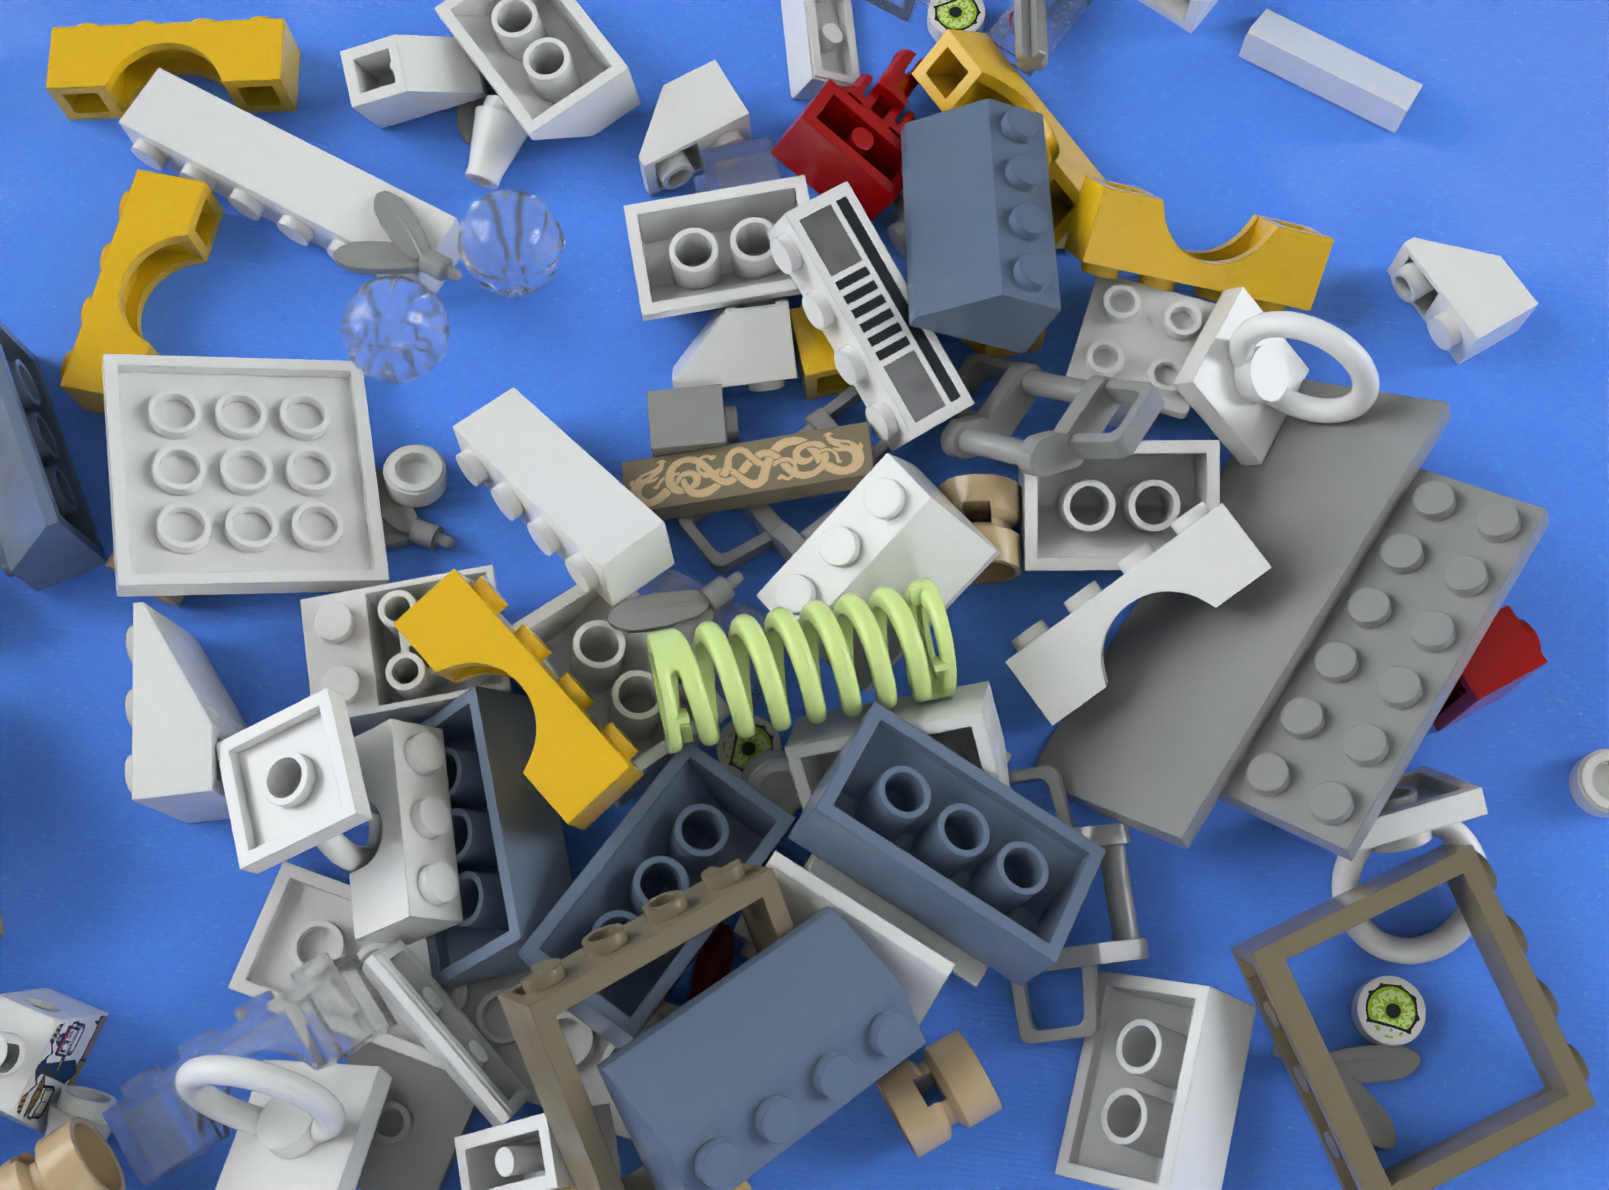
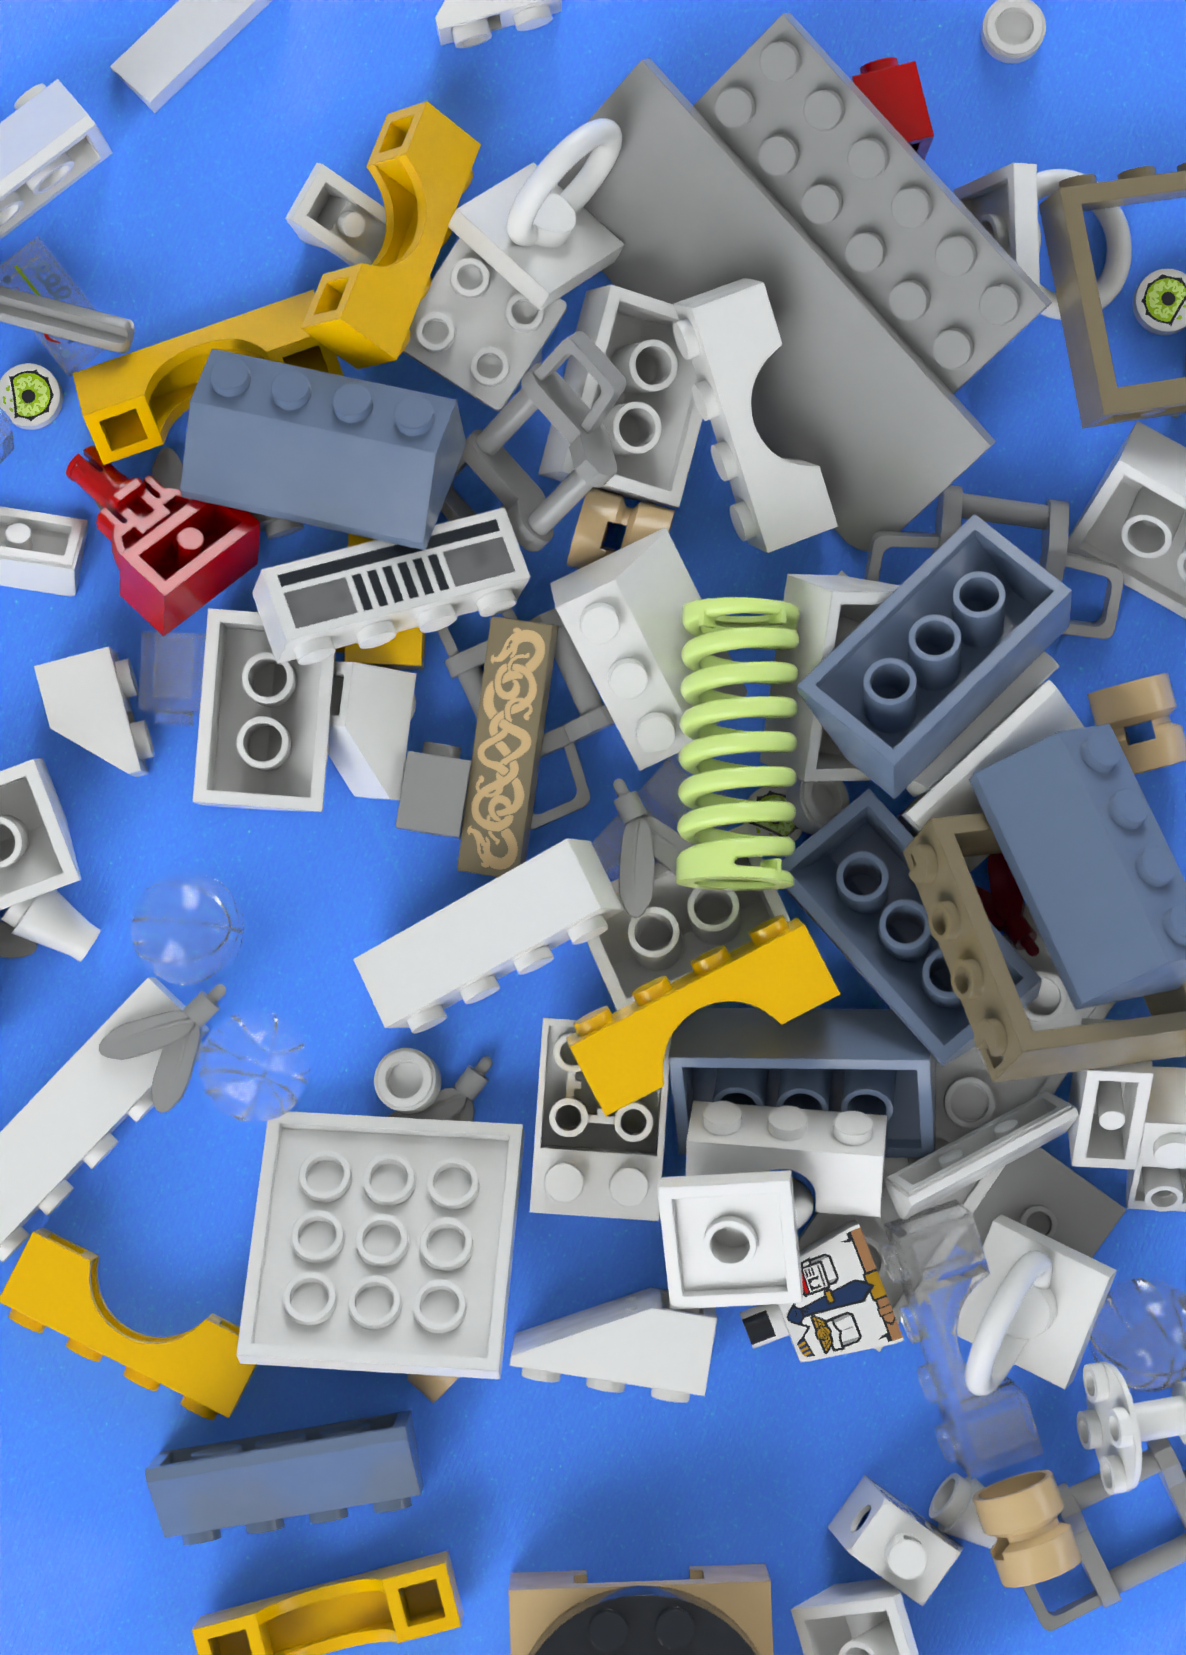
camera: 85 degrees left, 15 degrees up
(264, 921) = (841, 1302): none -> torso
(1201, 200) = (338, 217): none -> white slope

